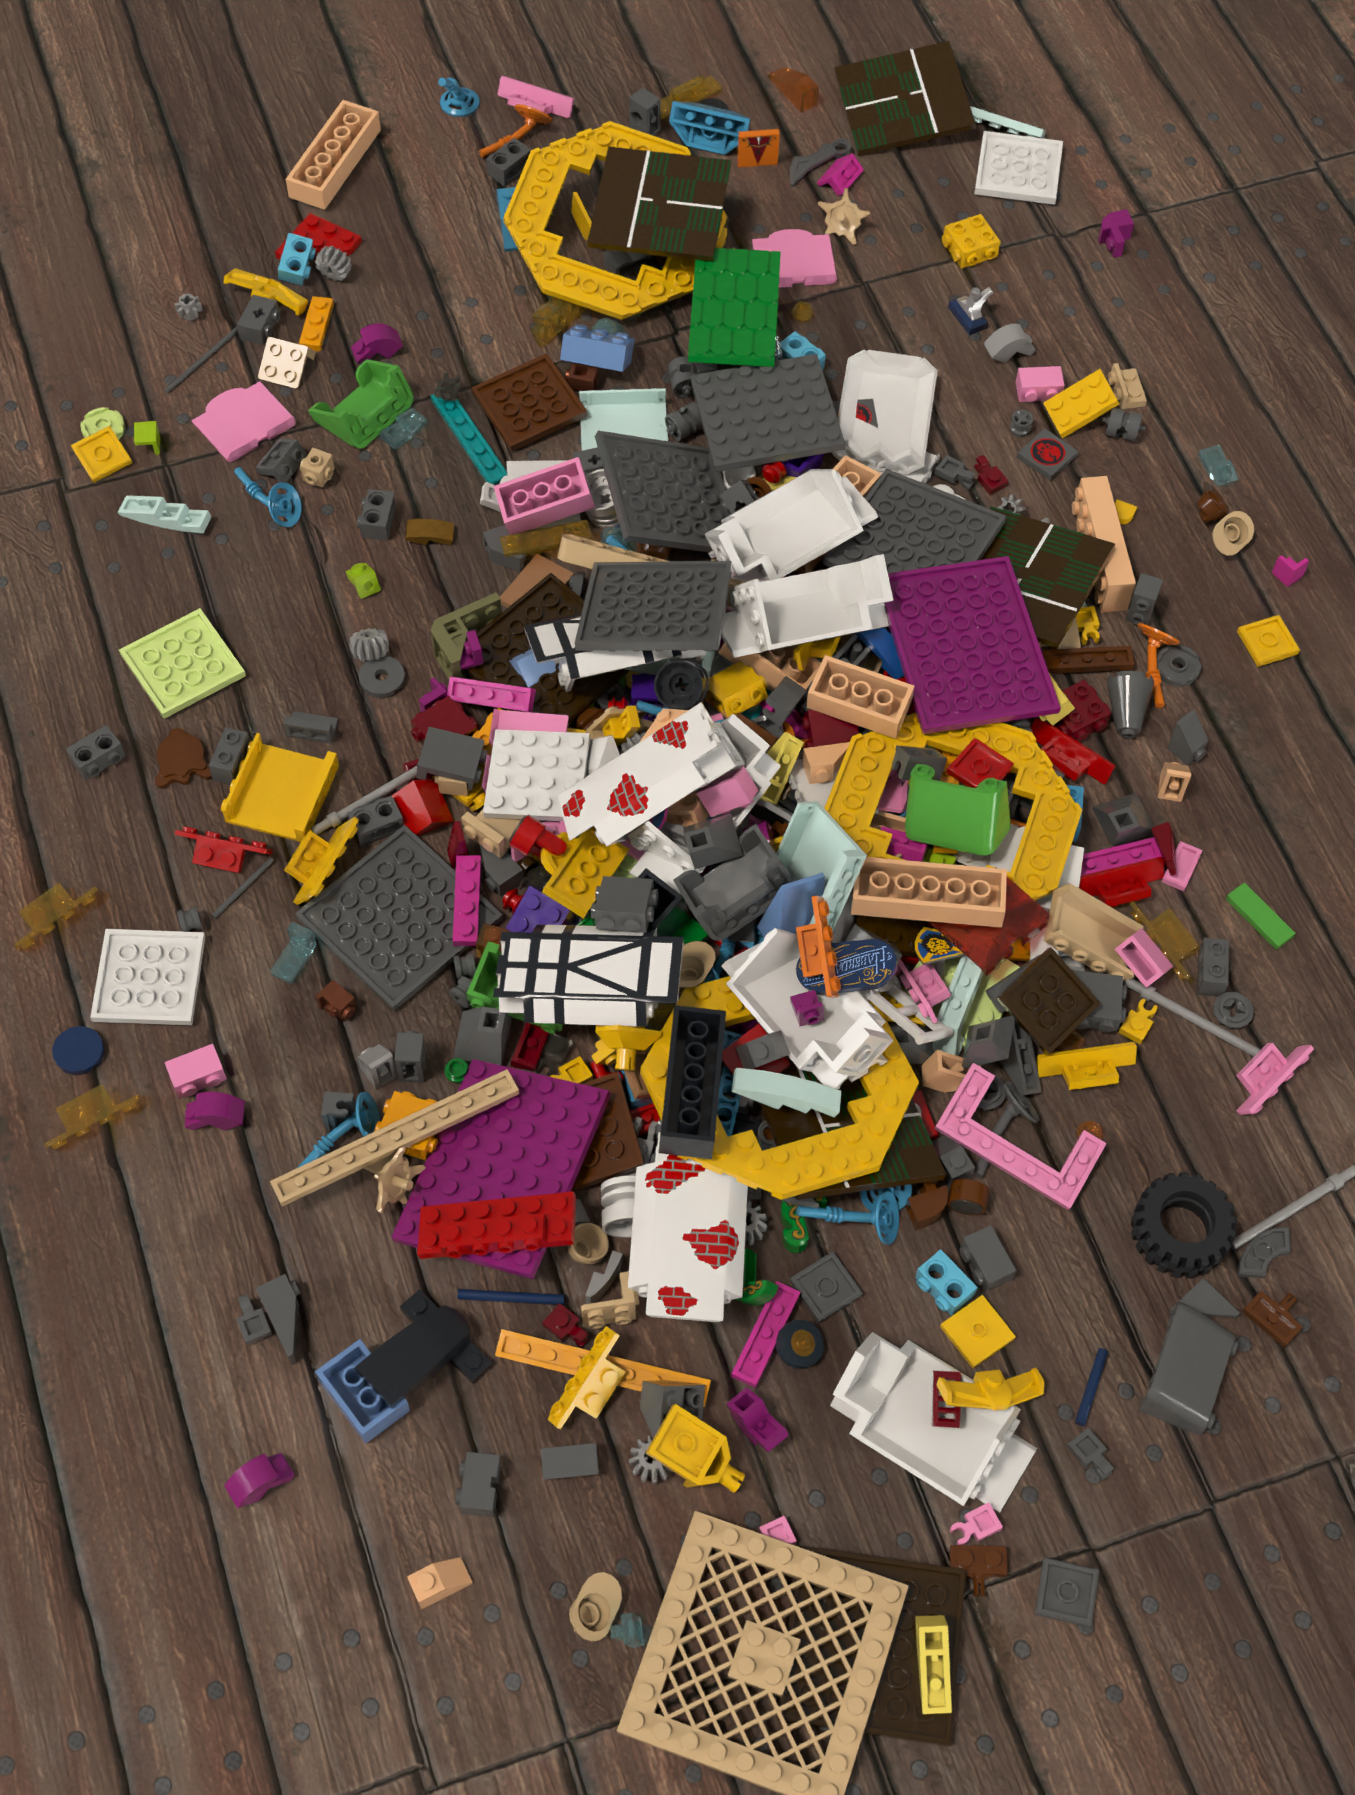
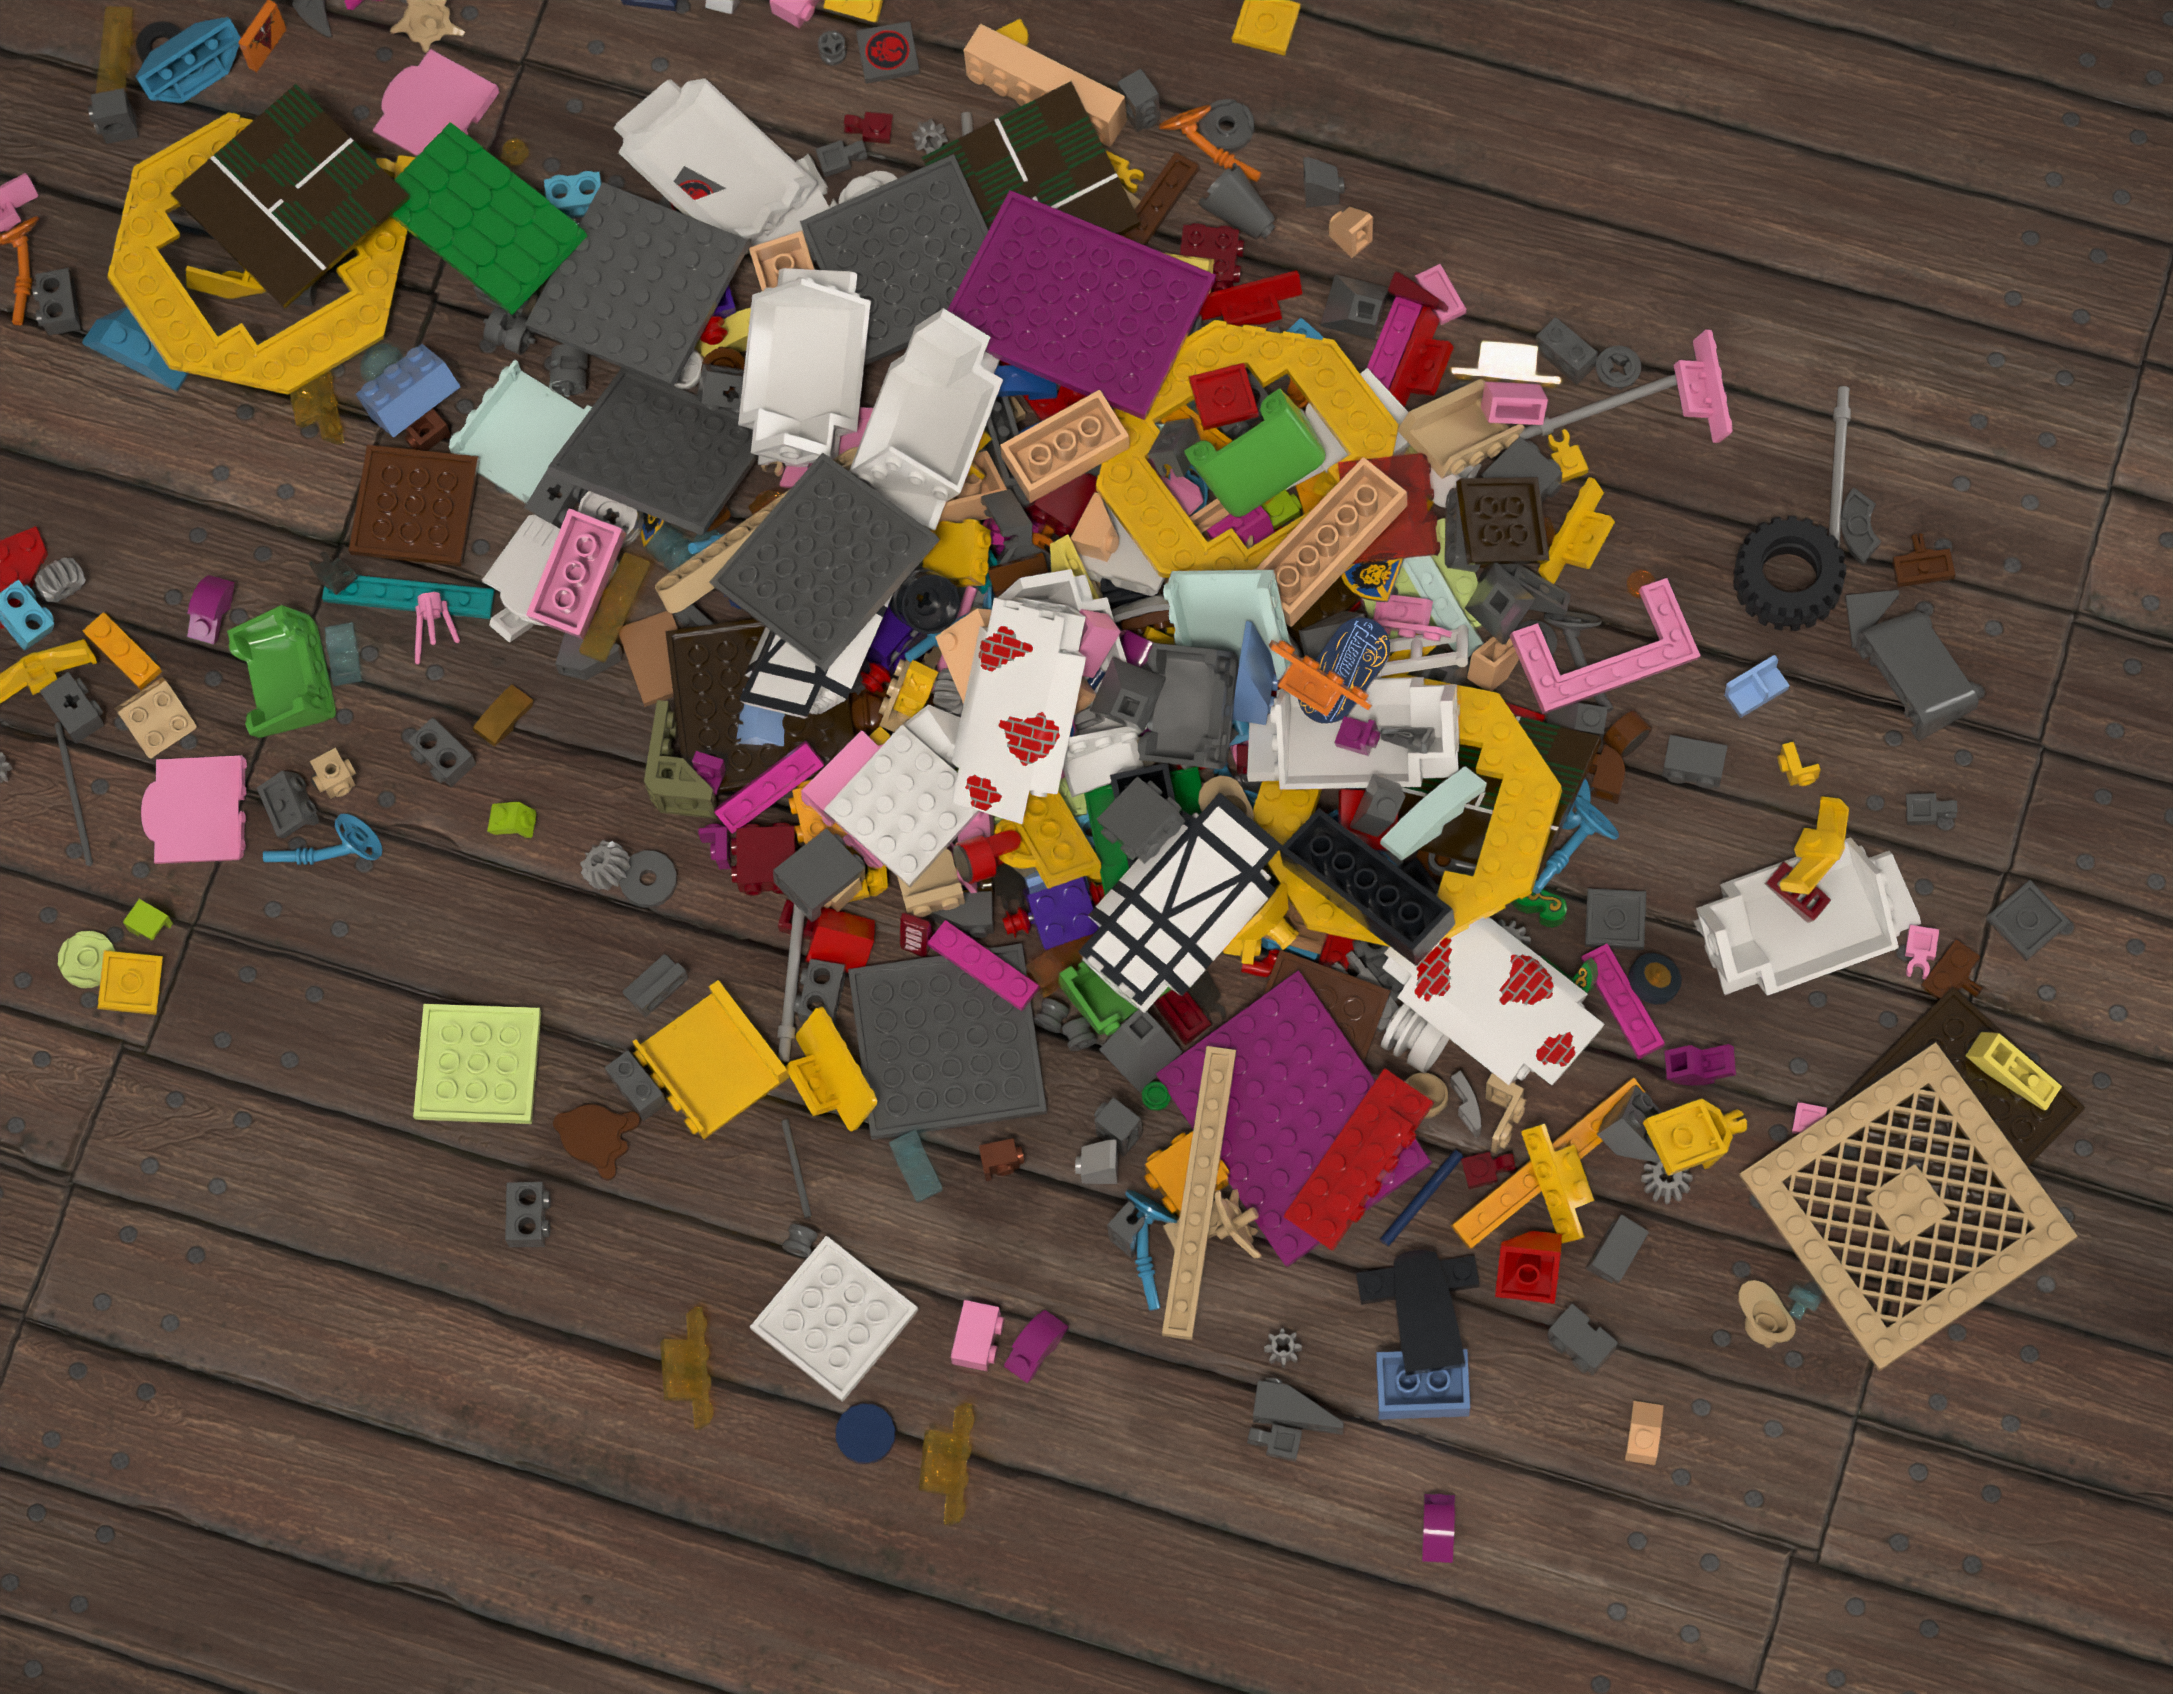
camera: 45 degrees left, 10 degrees up
(166, 515) = (265, 966): light aqua slope -> none
(220, 852) = (740, 1163): red bracket -> none
(320, 1272) = (1282, 1339): none -> light grey gear
(466, 448) = (430, 608): none -> bright pink plant
(510, 1407) = (1529, 1267): none -> red slope
(574, 1071) = (1241, 992): yellow plate -> none
(829, 1039) = (1411, 738): none -> dark grey tile
(951, 1279) = (1688, 806): medium azure brick -> none
(977, 1331) = (1752, 820): yellow plate -> none
(1042, 1326) = (1790, 763): none -> yellow bracket
(1080, 1263) = (1756, 687): none -> light blue panel
(1091, 1387) = (1870, 763): dark blue bar -> none
(1260, 916) = (1544, 267): bright green tile -> none

